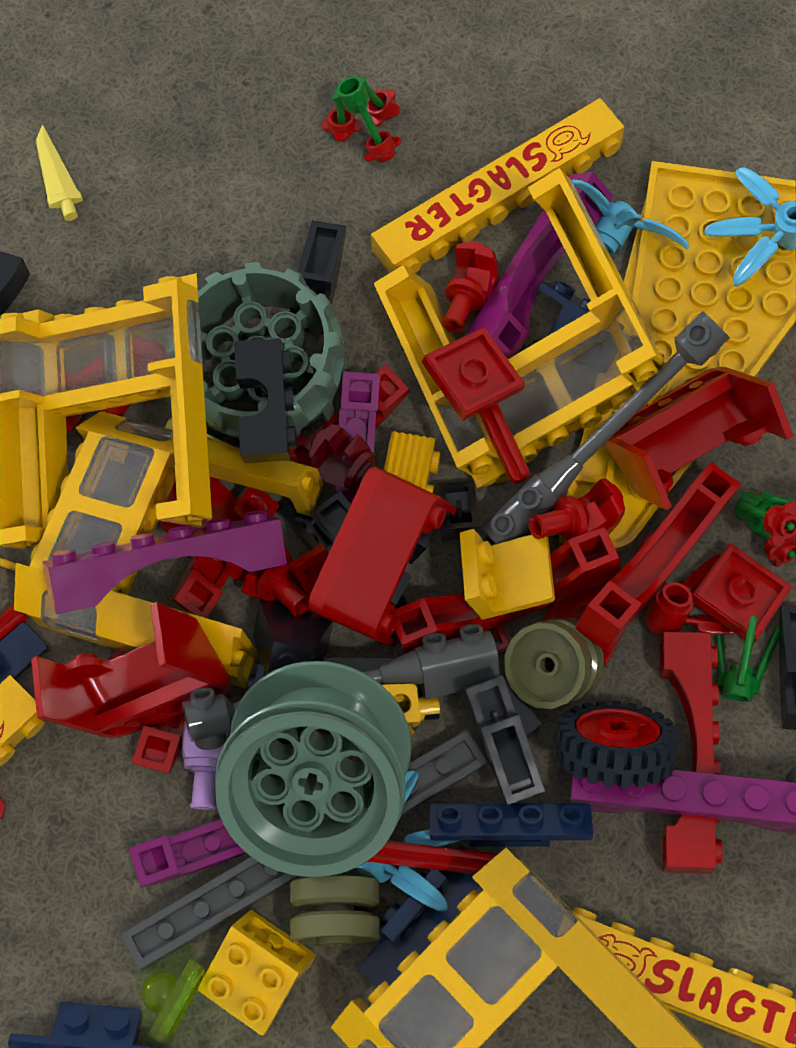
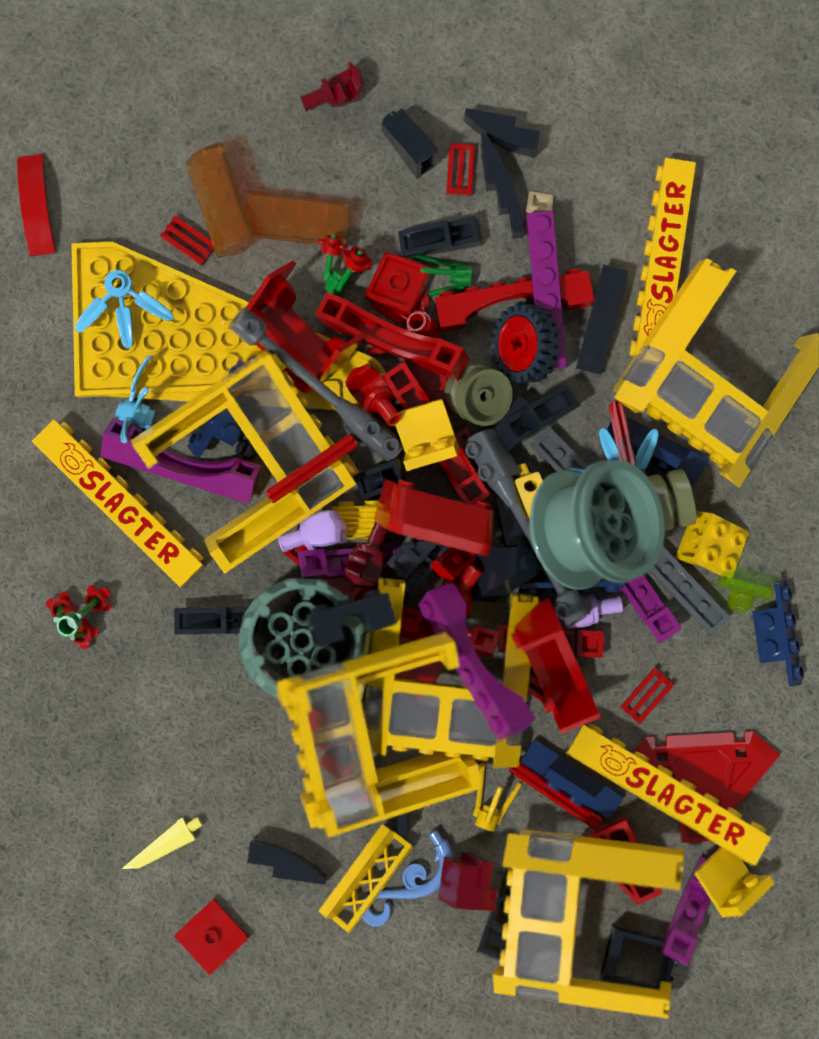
camera: 105 degrees left, 15 degrees up
(45, 793) = (661, 679): none -> red tile
(401, 406) = (317, 530): none -> lavender piece
(472, 284) = (205, 507): red piece -> none
(473, 373) = (287, 484): red plate -> none
(510, 824) = (592, 409): dark blue bracket -> none
(642, 880) = (602, 319): none -> black slope

